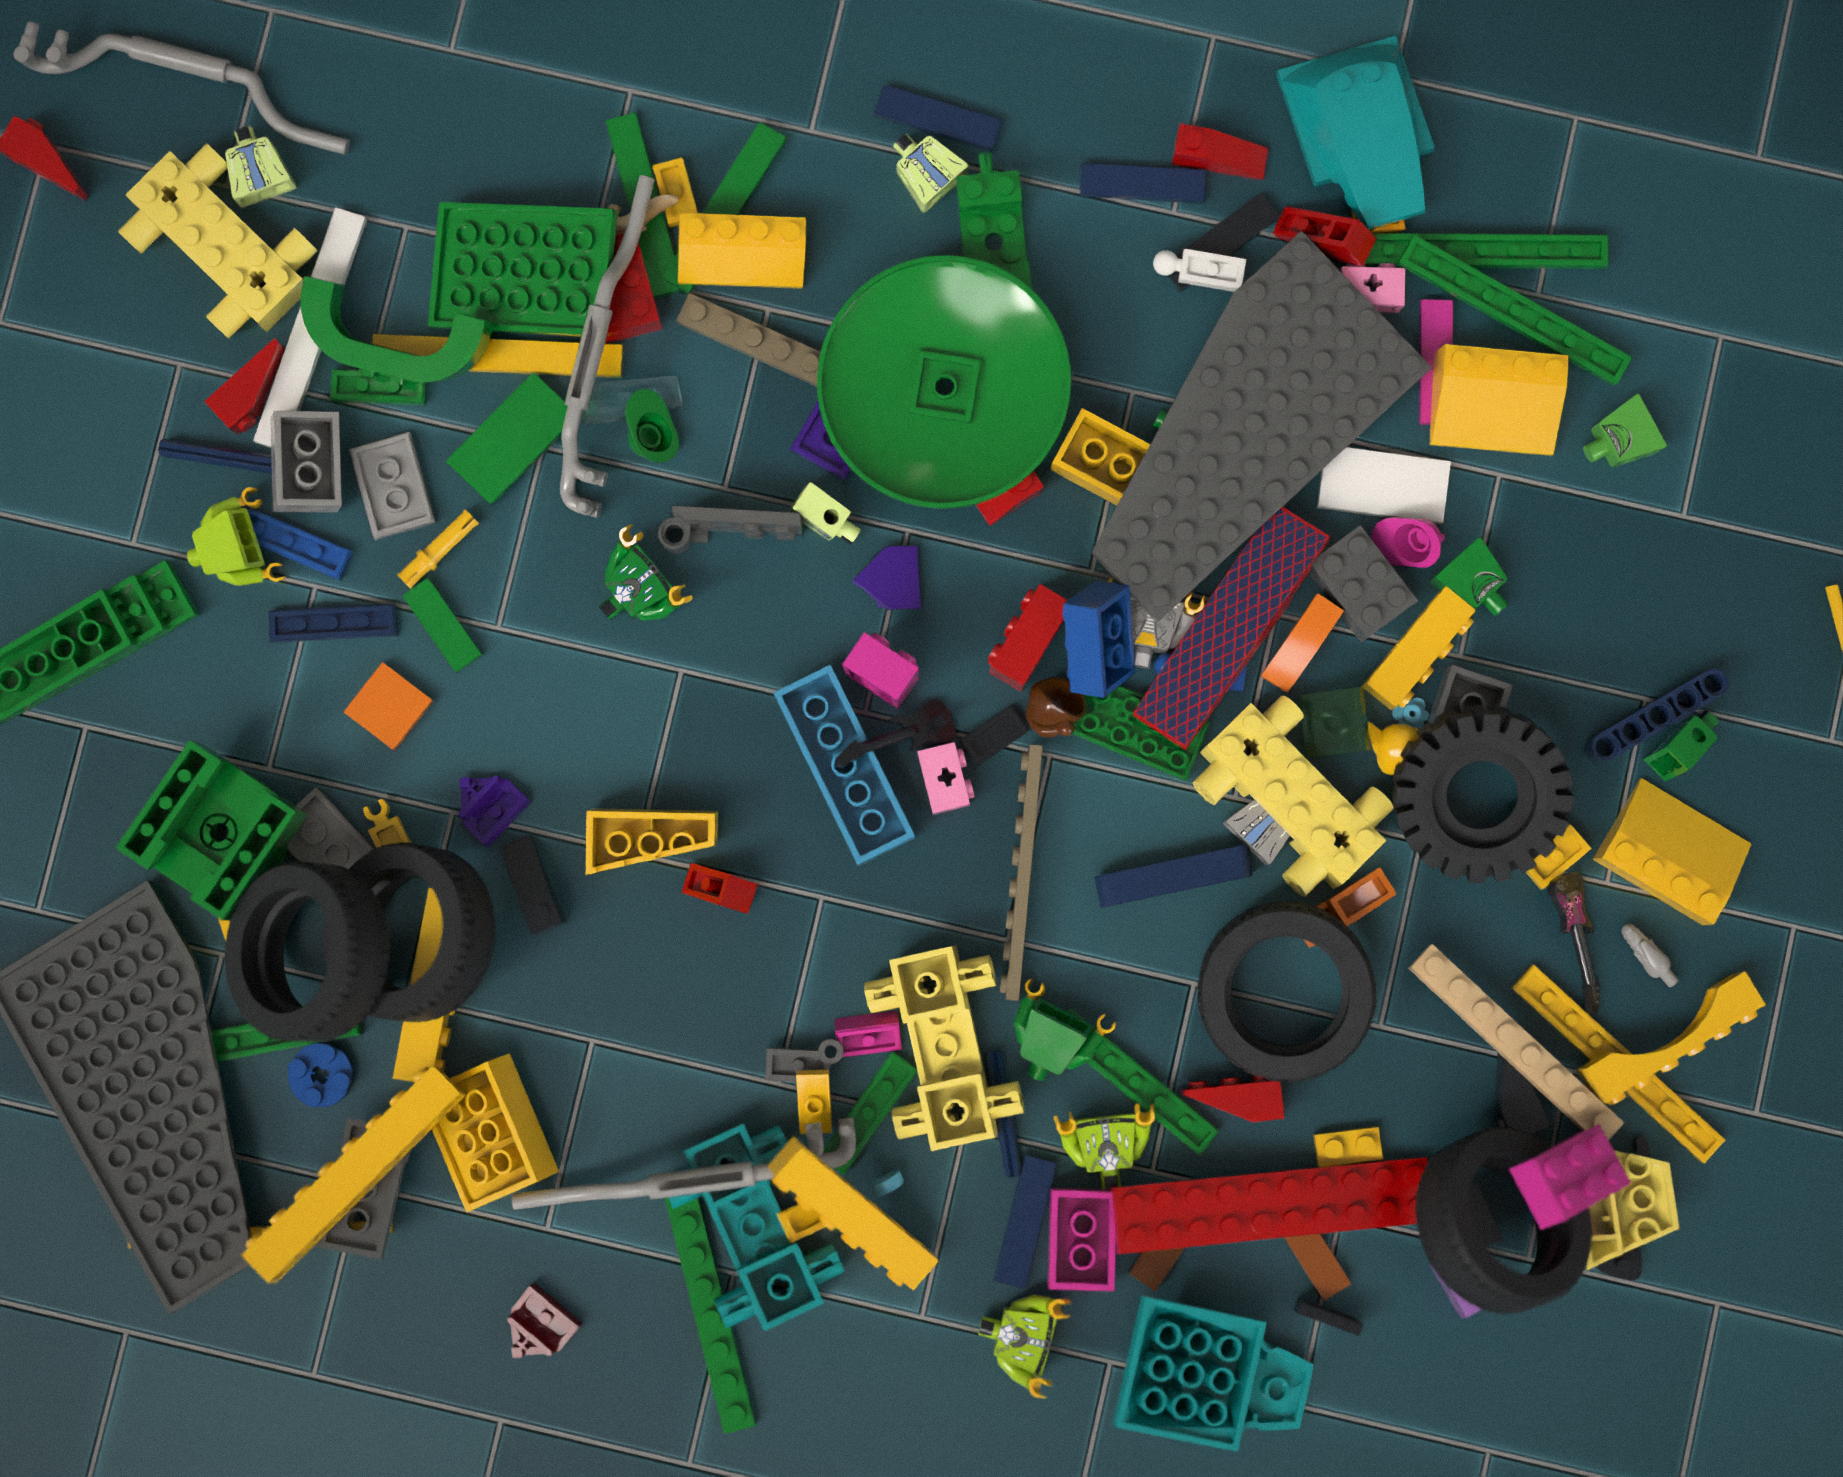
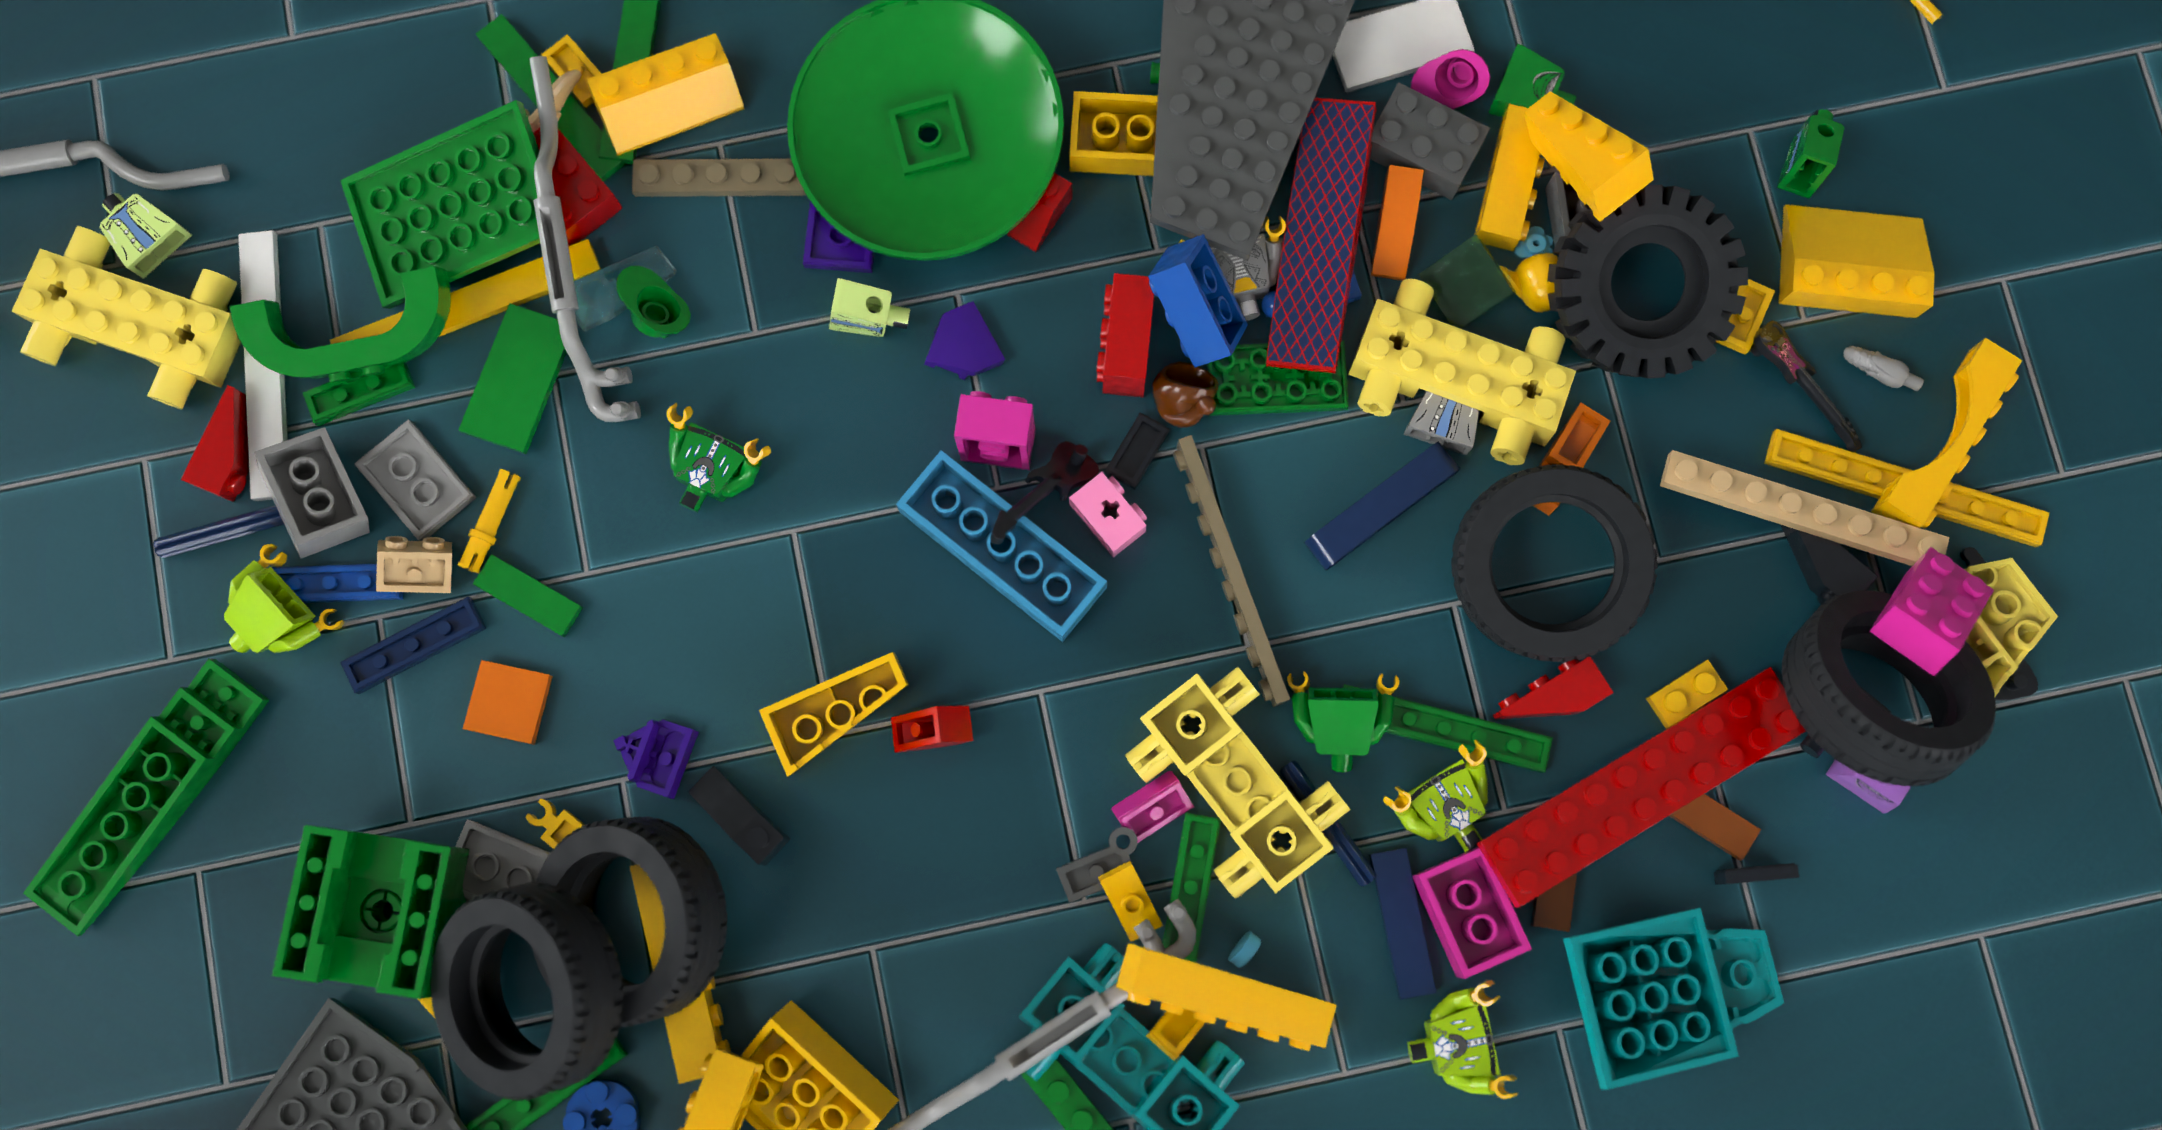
camera: 25 degrees left, 5 degrees down
(362, 559) = (414, 565): none -> tan bracket
(698, 521) = (796, 349): dark grey hinge -> none
(1480, 669) = (1589, 154): none -> yellow wedge
(1670, 711) = (1781, 128): dark blue beam -> none

